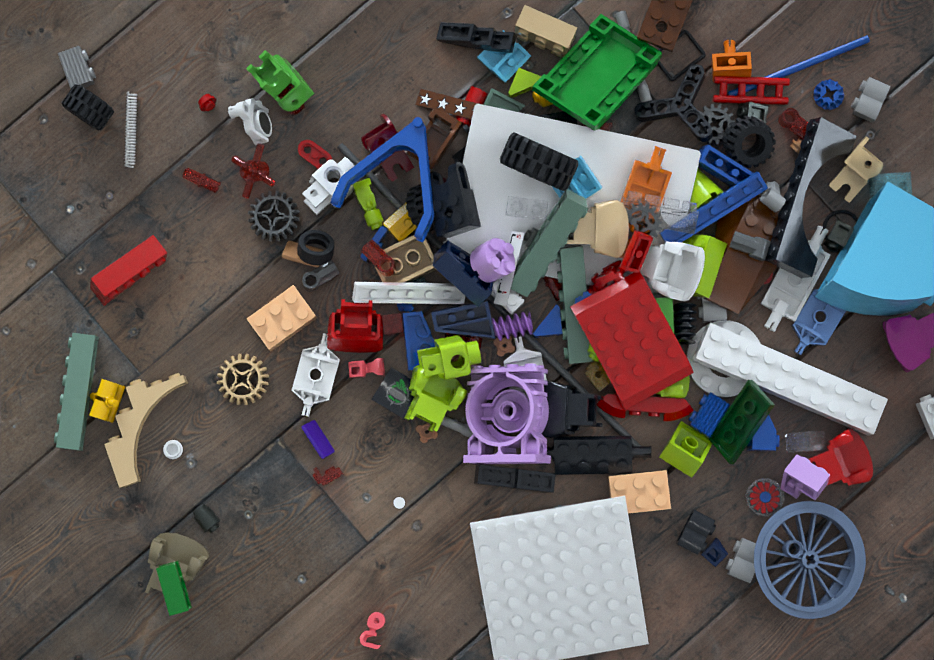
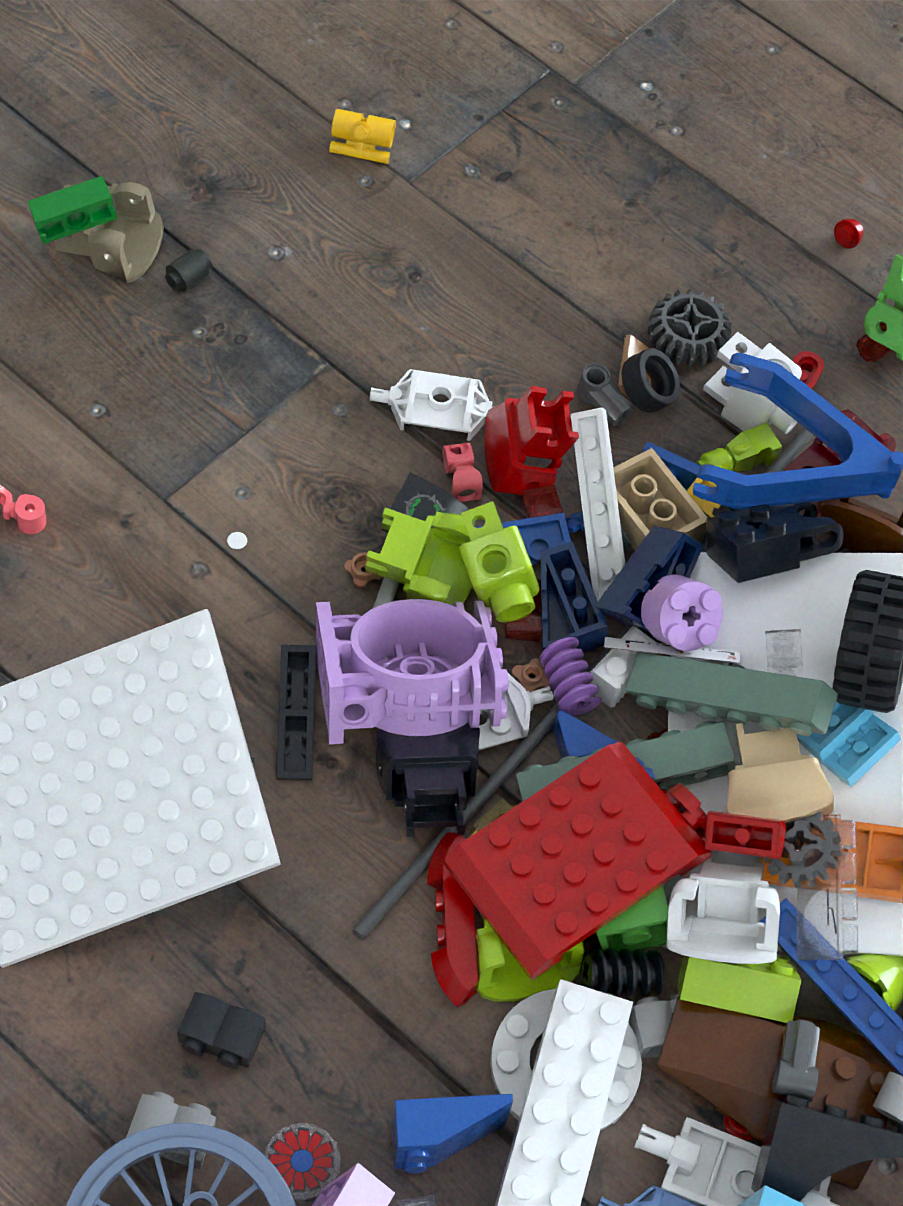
camera: 75 degrees right, 25 degrees down
(76, 67) = (858, 74): light grey brick -> none
(77, 391) = (406, 101): sand green brick -> none
(87, 107) = (805, 78): black tyre -> none
(123, 450) = (330, 167): tan arch -> none
(127, 130) = (780, 147): white piece -> none
(128, 270) = (567, 144): red wedge -> none
(173, 449) = (295, 224): white plate -> none
(201, 180) = (726, 234): clear red axle -> none
(235, 386) = (420, 312): tan gear -> none
(253, 170) = (757, 292): clear red bar -> none
(255, 119) = (839, 280): white piece -> none
(282, 318) = (526, 345): light nougat brick -> none
(318, 439) = (332, 411): dark purple slope -> none
(331, 474) = (272, 427): clear red bracket -> none
(378, 257) = (650, 453): clear red piece -> none
(595, 454) = (353, 834): black plate -> none
(642, 490) = (290, 920): light nougat brick -> none
(686, 449) = (381, 999): lime slope -> none
(709, 414) = (453, 1036): blue brick -> none
(715, 552) = (184, 1073): dark blue slope -> none
(741, 421) = (447, 1079): dark green tile -> none

